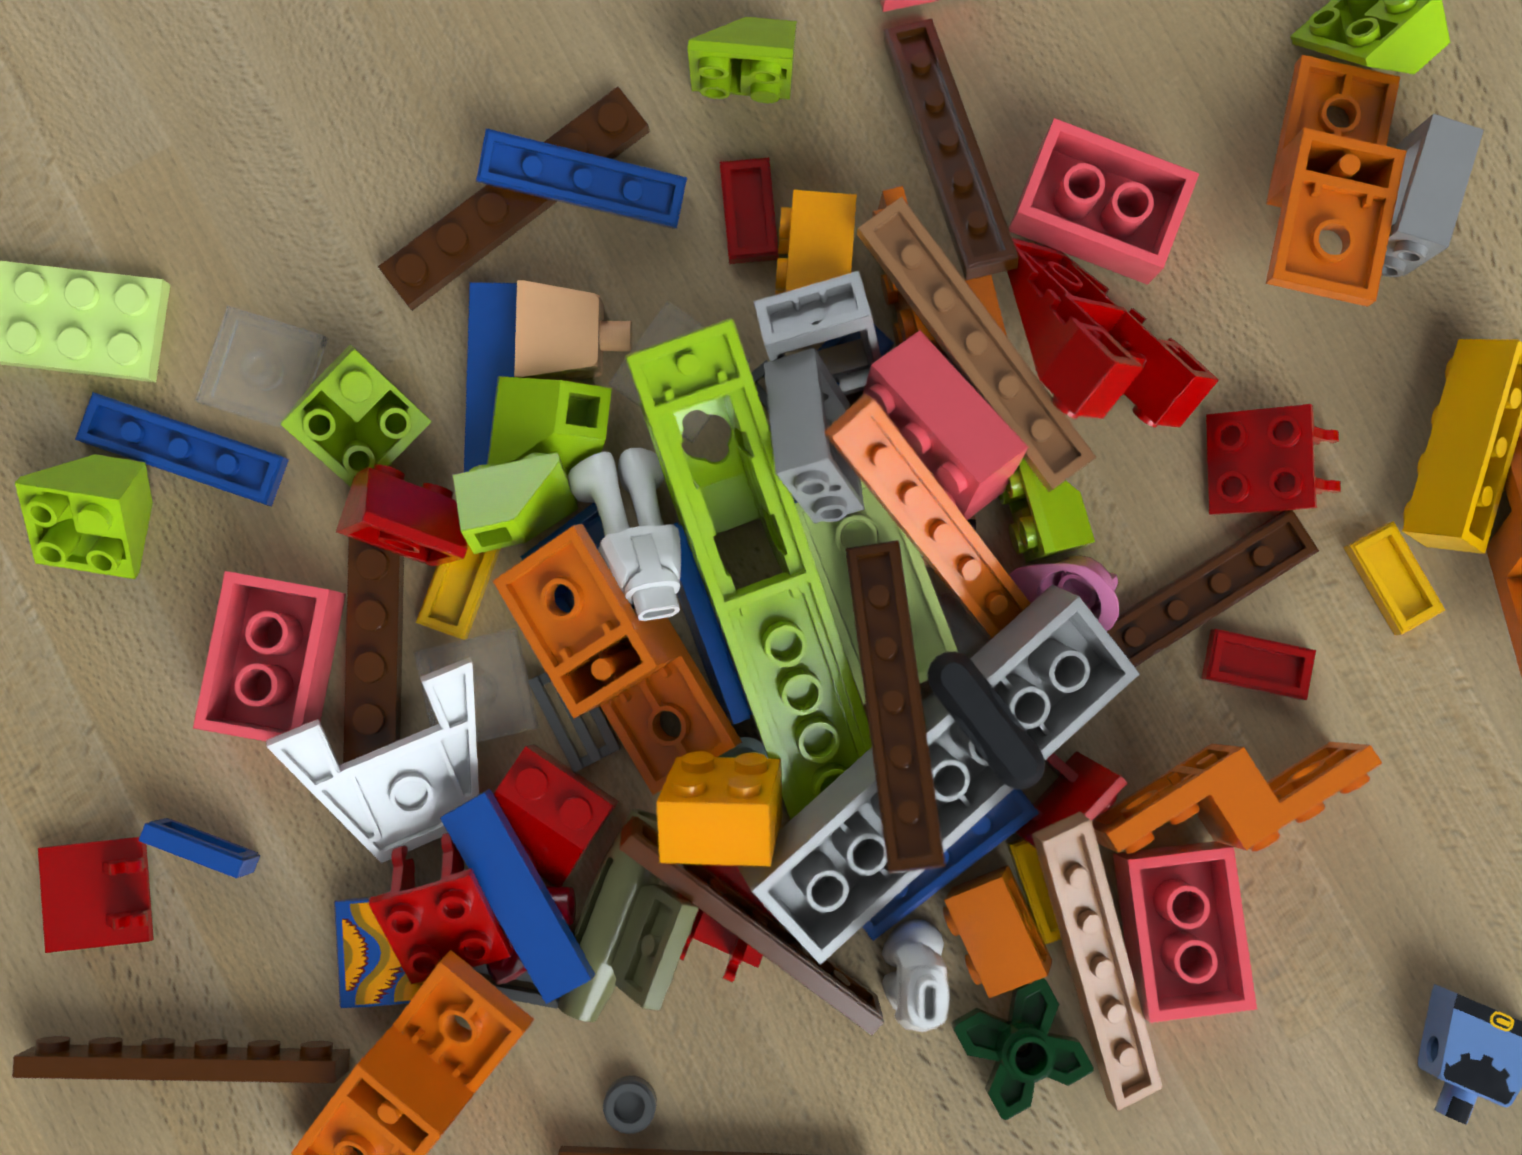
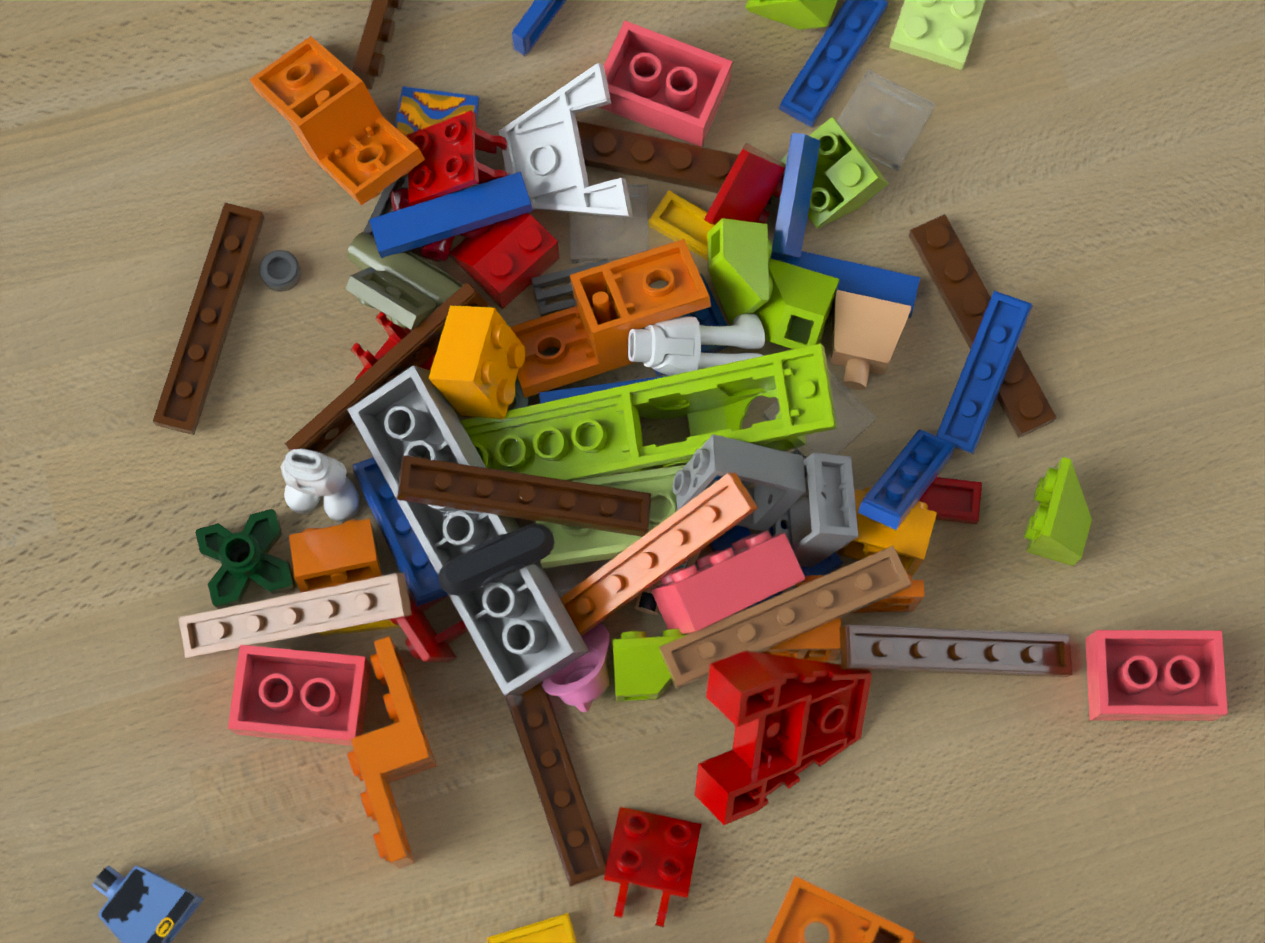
camera: 105 degrees right, 10 degrees down
(398, 450) = (795, 195): none -> blue tile
(755, 237) = (906, 479): none -> blue tile
(1103, 202) = (890, 769): coral brick -> none
(1258, 664) = (490, 816): red tile -> none

